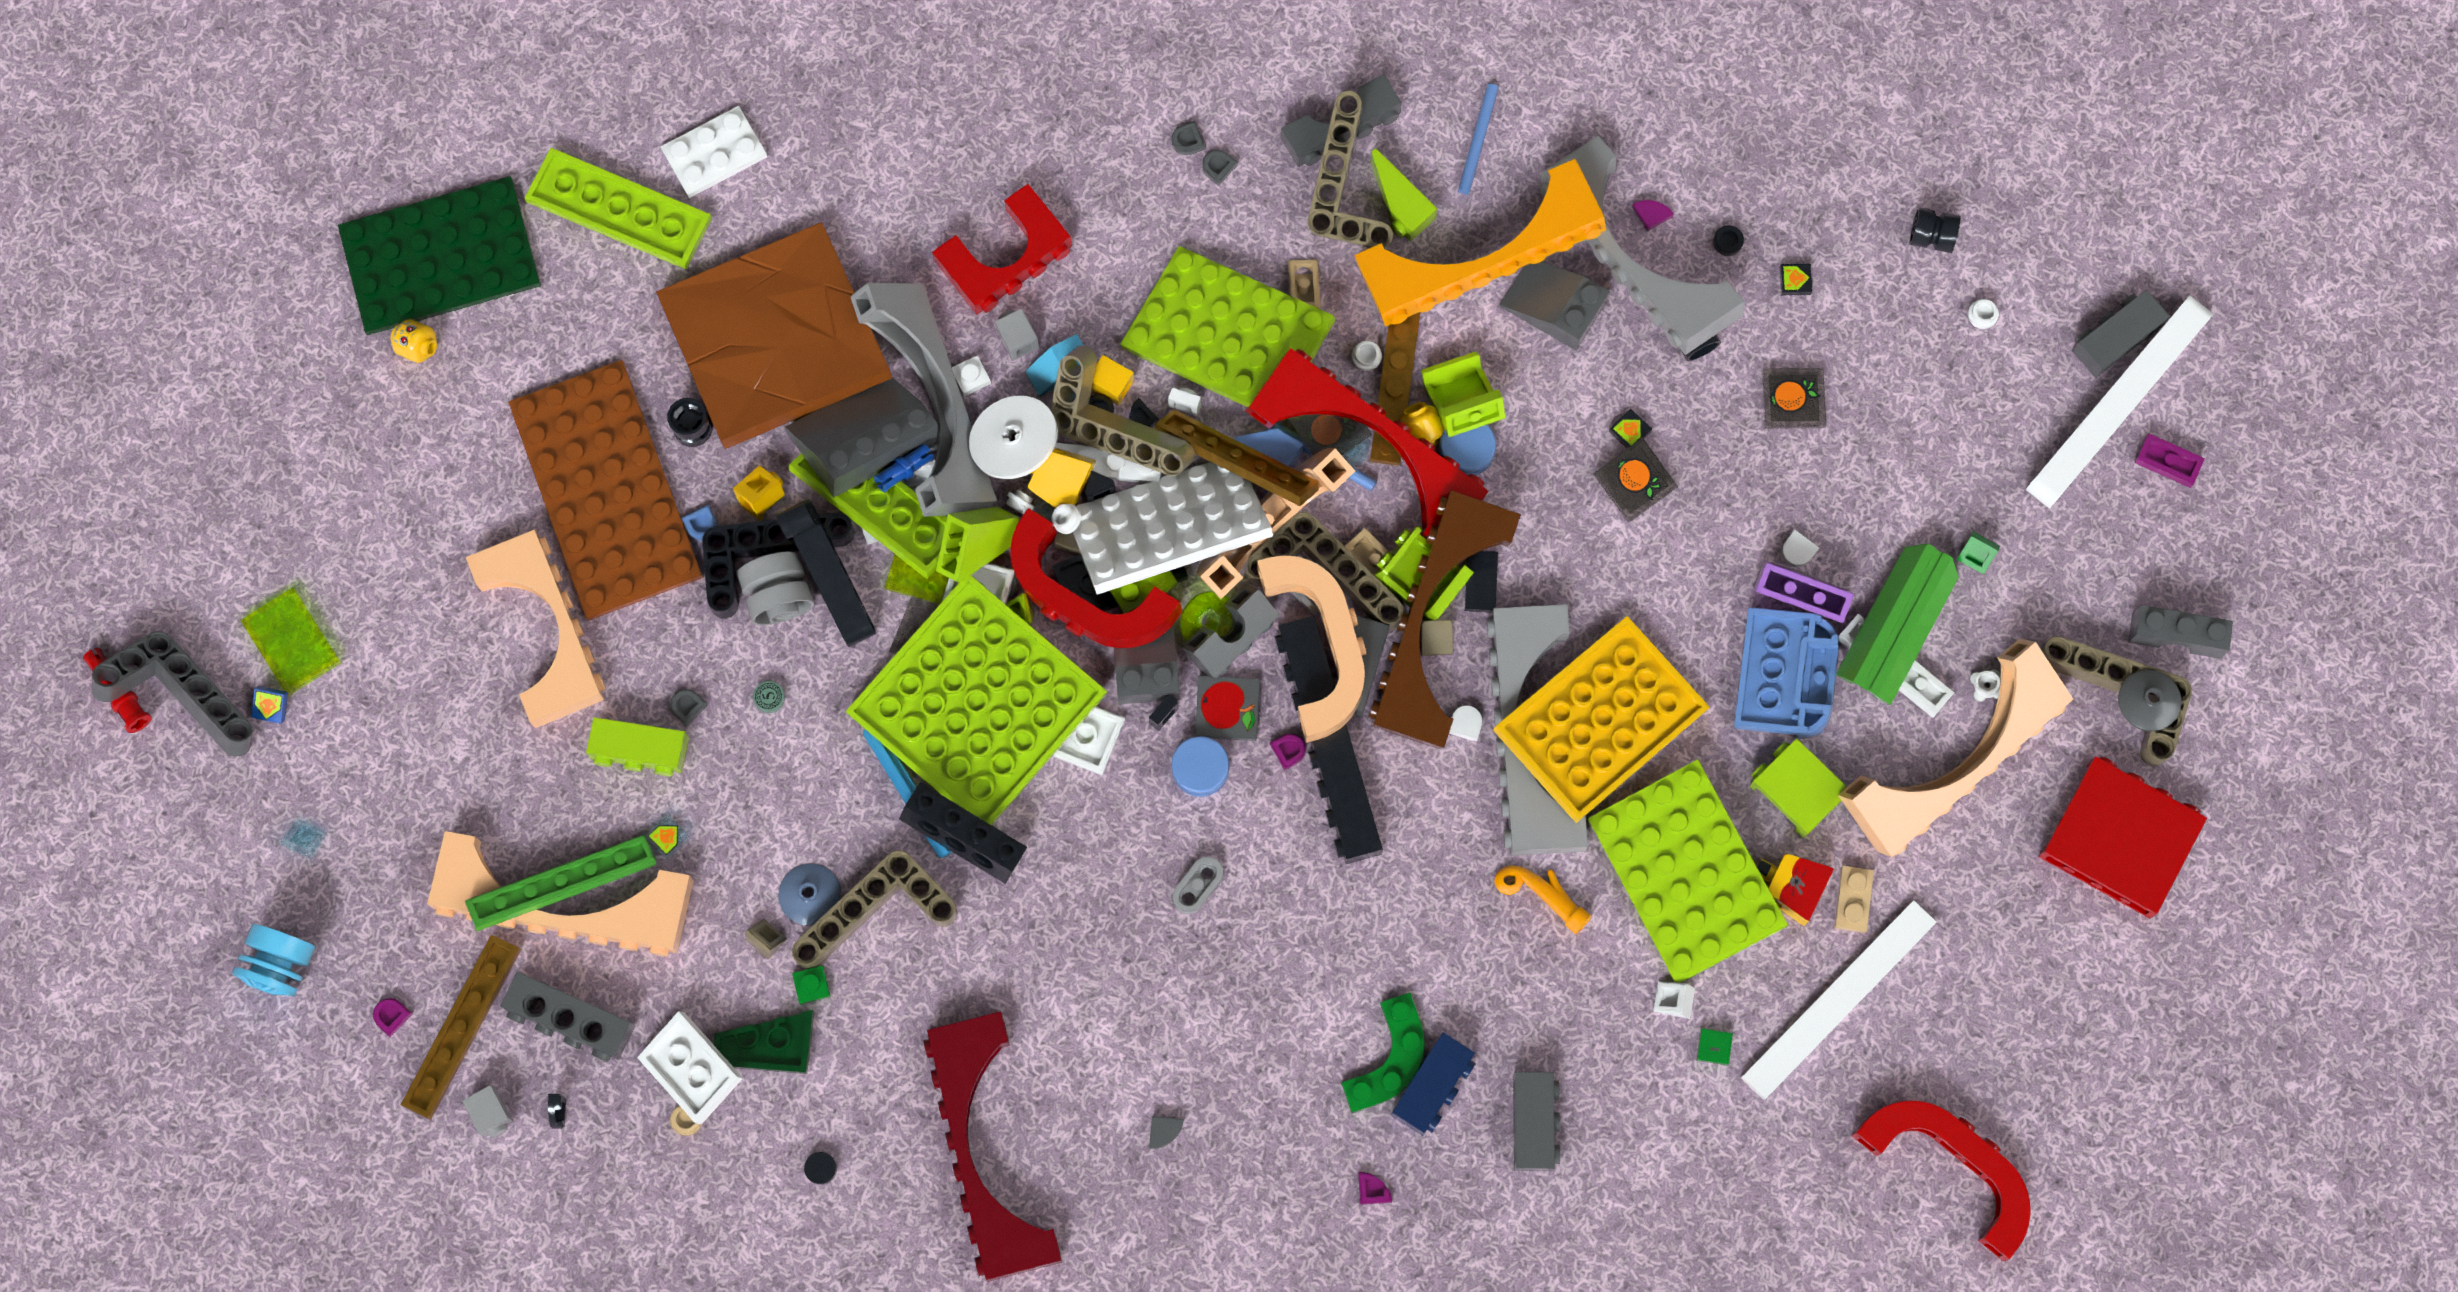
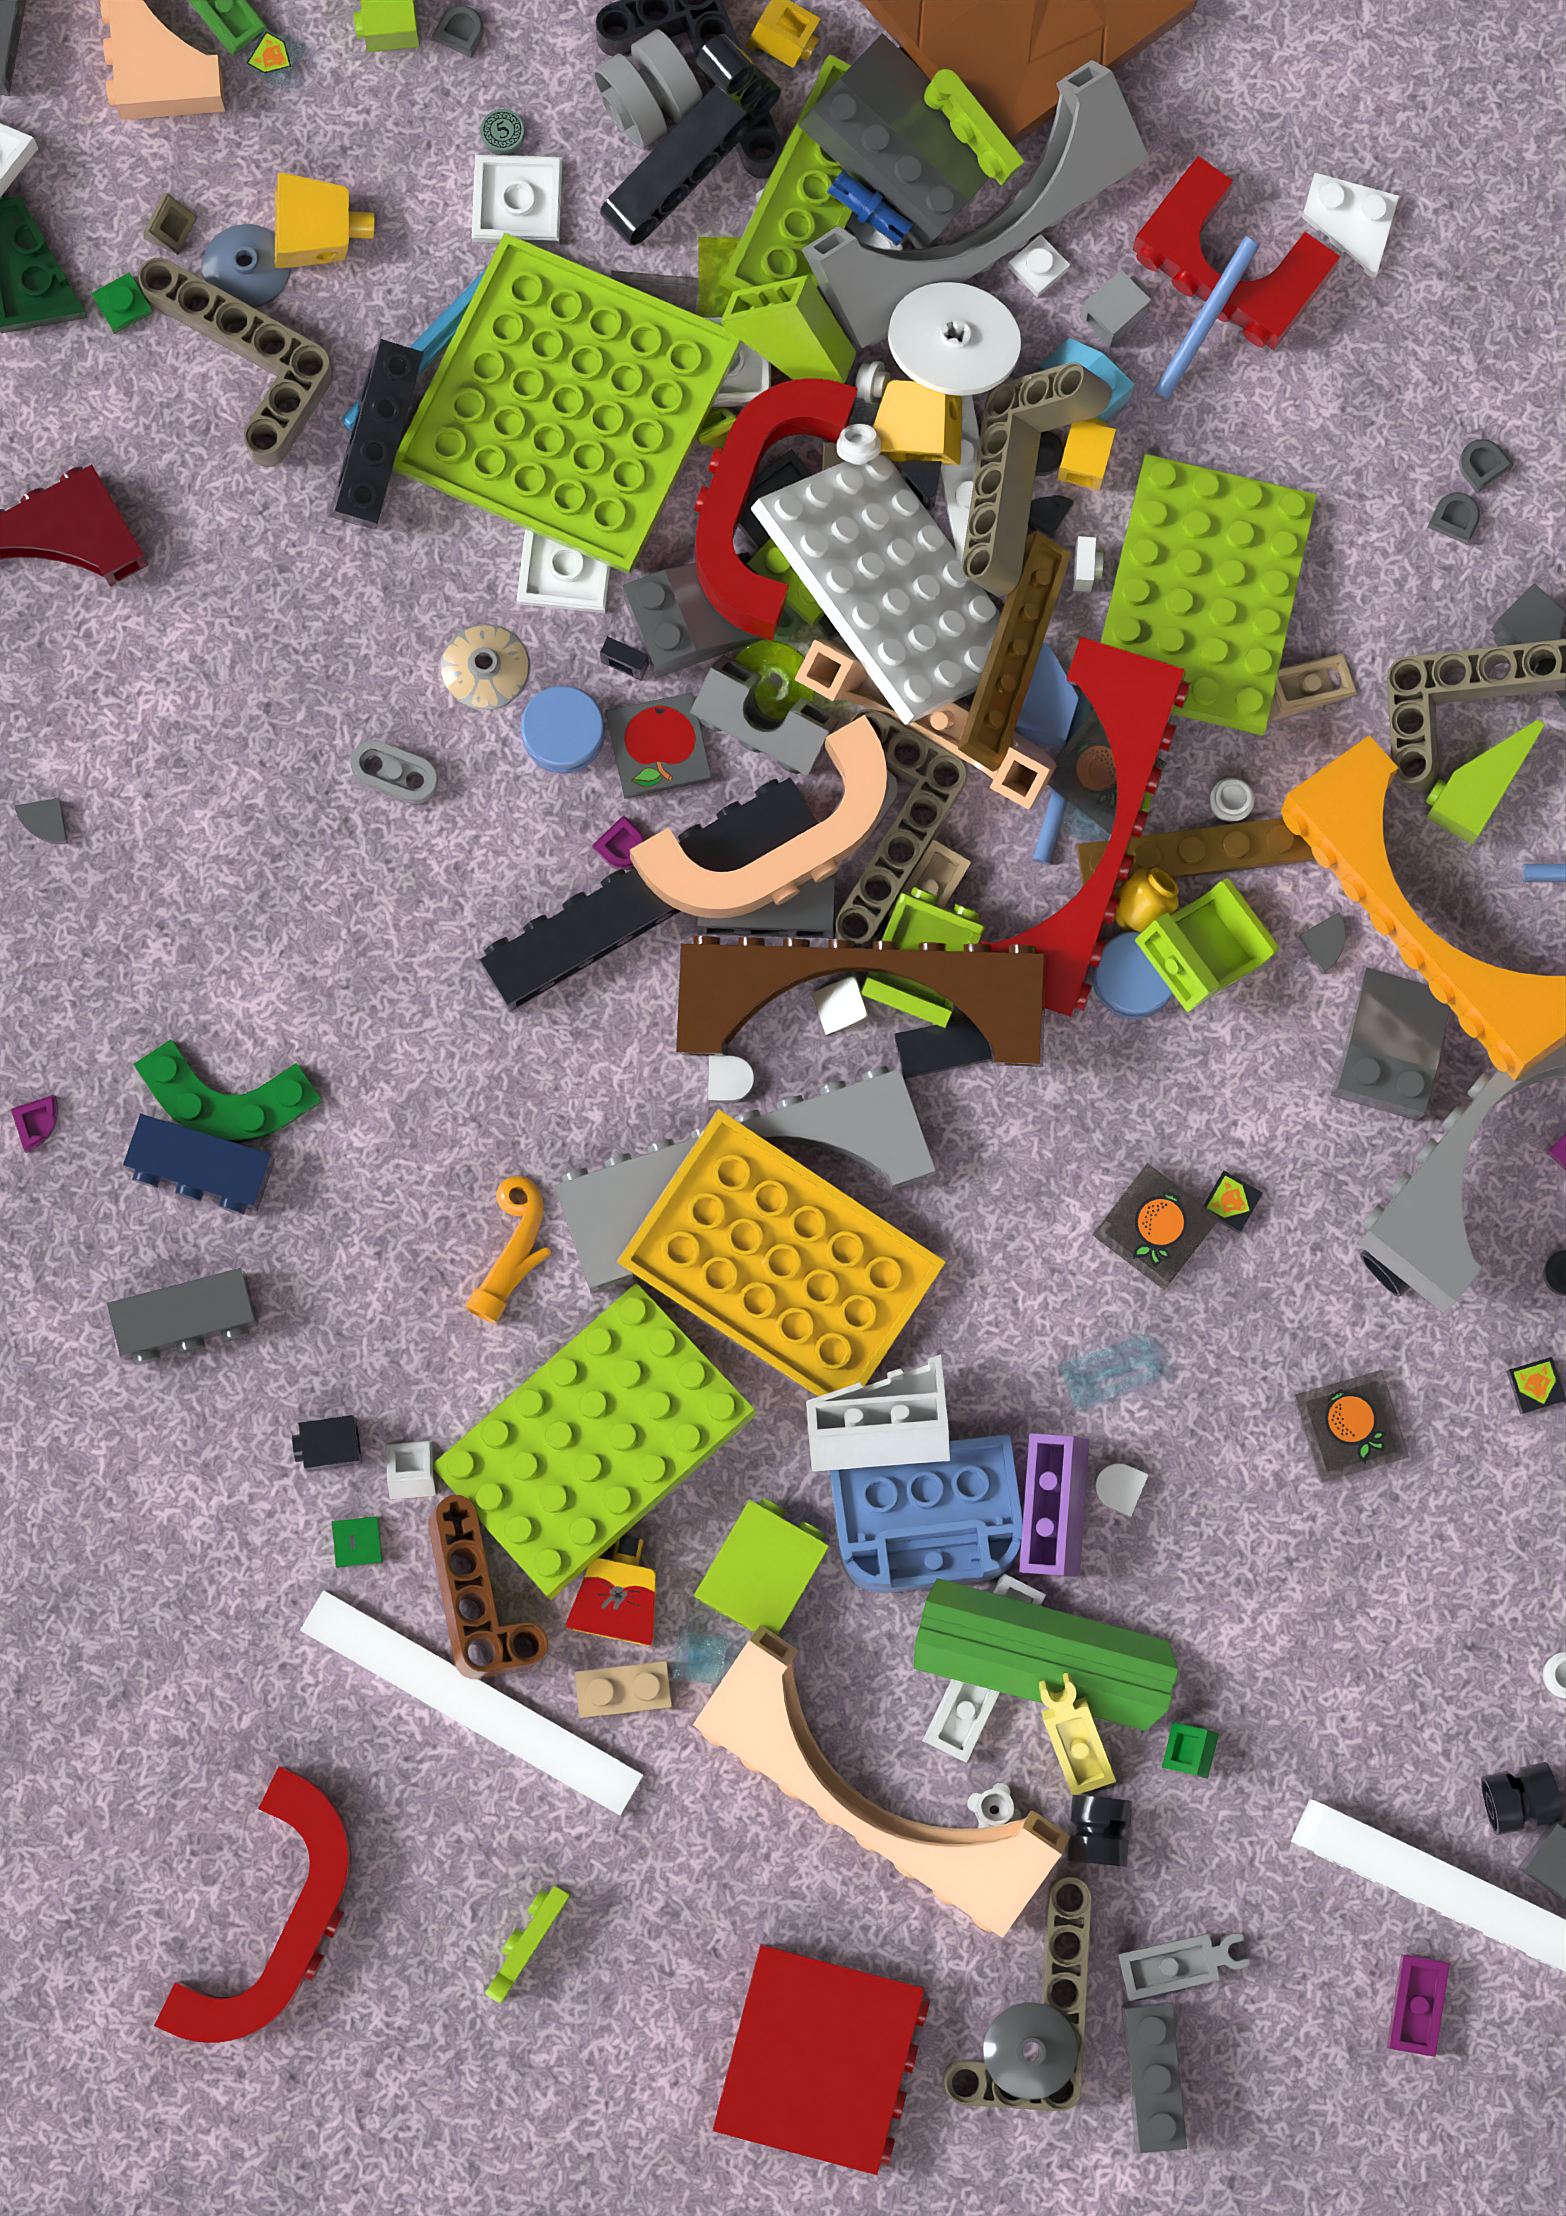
camera: 70 degrees right, 5 degrees up
(796, 837) = (315, 222): none -> yellow torso
(819, 700) = (517, 198): none -> white tile
(871, 384) = (973, 126): none -> lime plate
(998, 171) = (1352, 218): none -> white wing
(1043, 277) = (1207, 317): none -> medium blue bar
(1139, 823) = (491, 686): none -> tan dish
(1476, 324) = (1325, 942): none -> dark grey tile
(1645, 1047) = (327, 1443): none -> black brick
(1723, 561) = (1073, 1384): none -> clear light blue tile
(1725, 681) = (881, 1423): none -> white wedge
(1766, 972) = (475, 1587): none -> dark orange beam
(1846, 844) = (699, 1658): none -> clear light blue slope
(1956, 619) = (1076, 1738): none -> light yellow plate
(2007, 1004) = (523, 1944): none -> lime plate
(2016, 621) = (1099, 1830): none -> black wheel
(2056, 361) = (1521, 1798): none -> black wheel
(2111, 599) = (1176, 1965): none -> light grey plate

